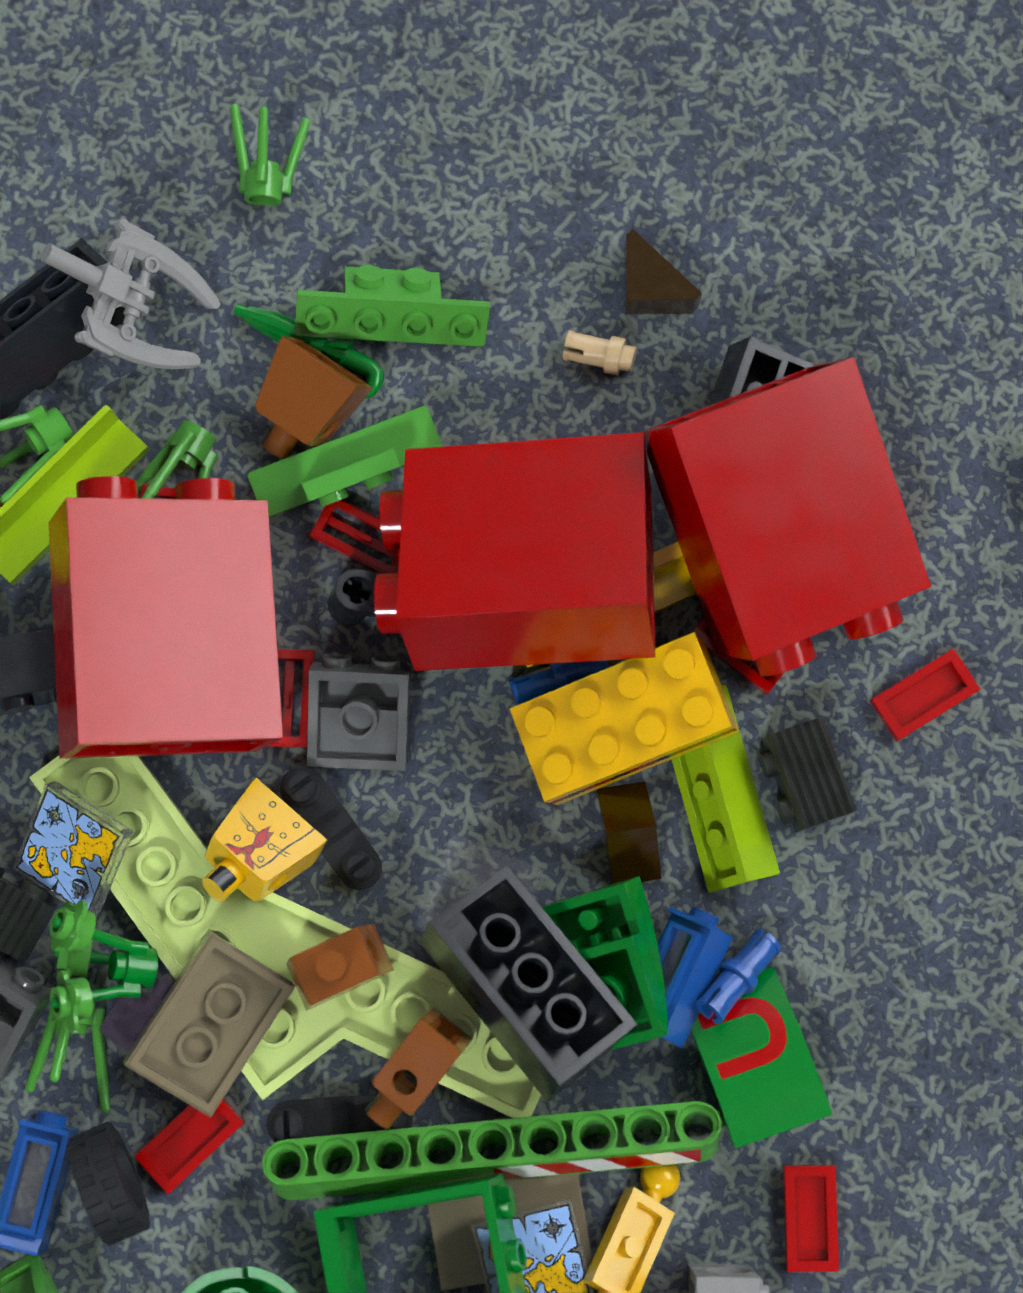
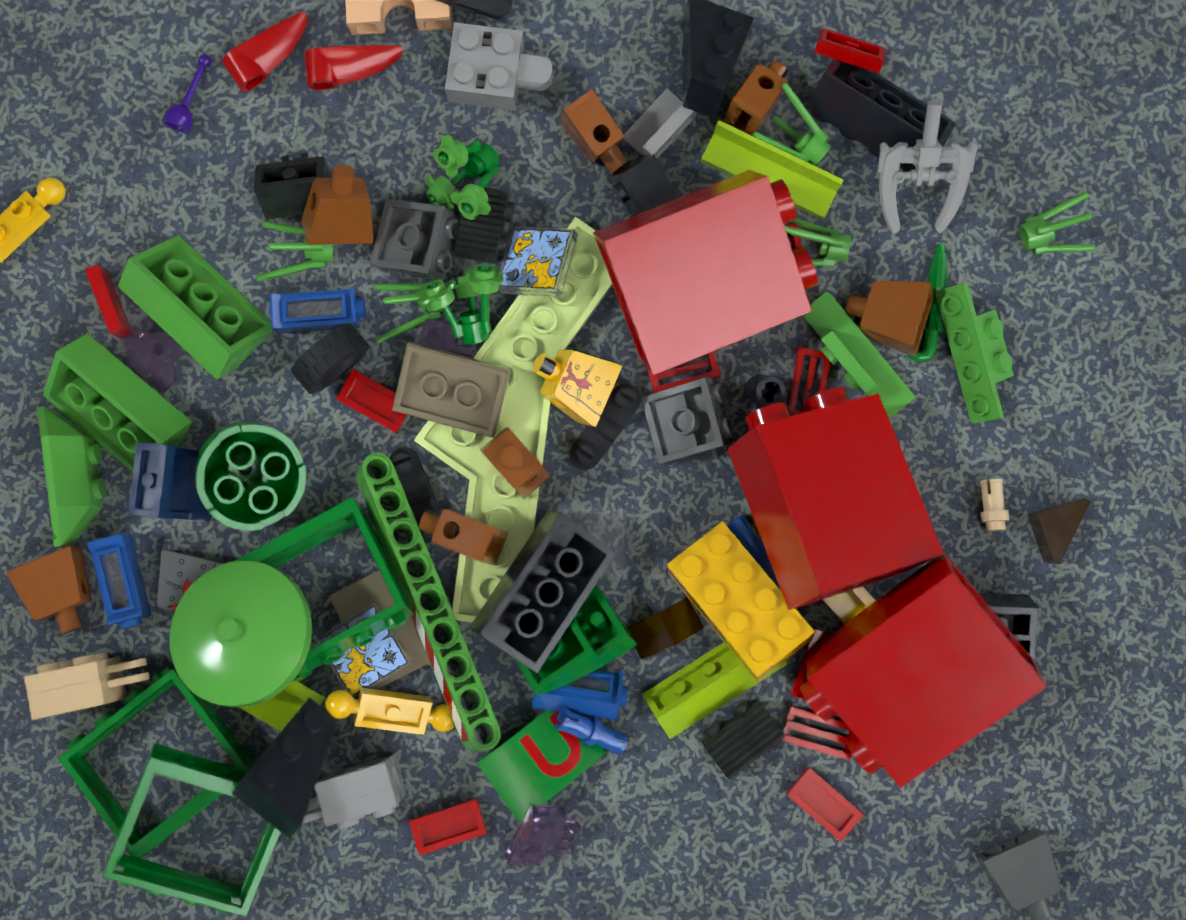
camera: 70 degrees right, 5 degrees up
(807, 707) = (789, 724): none -> tile
(855, 1088) = (541, 833): none -> clear purple hinge

